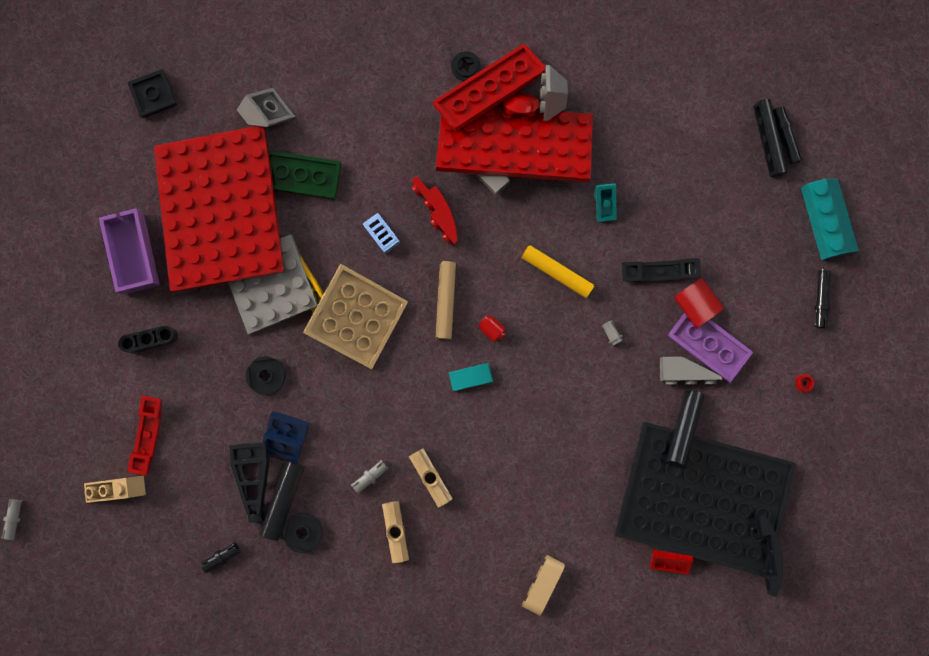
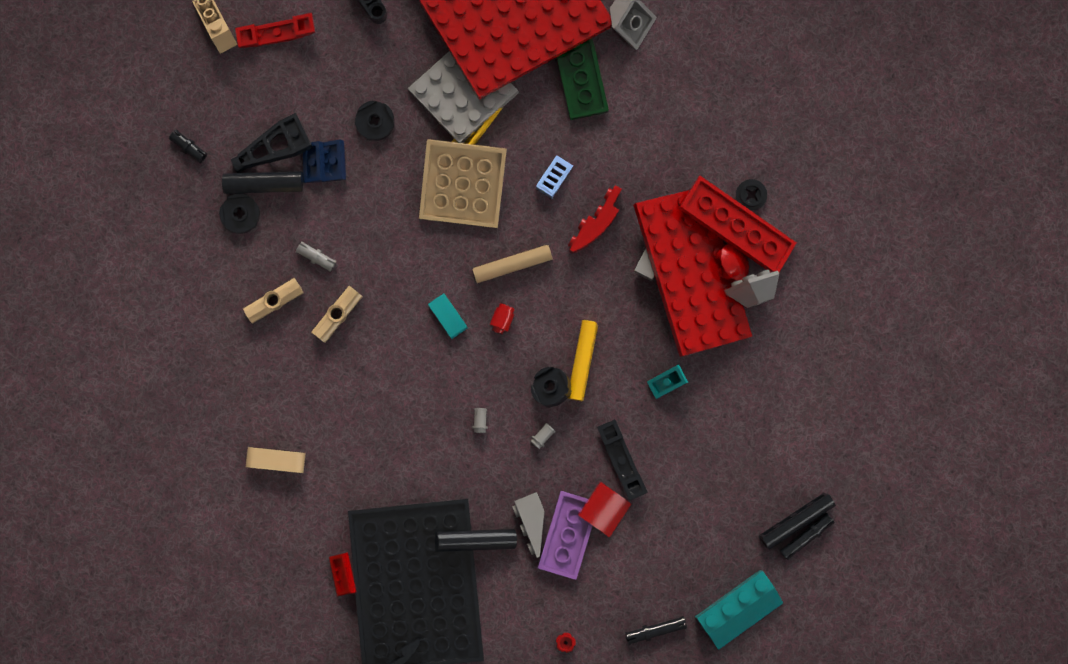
camera: 60 degrees right, 0 degrees up
(577, 384) = (480, 420): none -> light grey pin
(578, 299) = (560, 392): none -> black plate

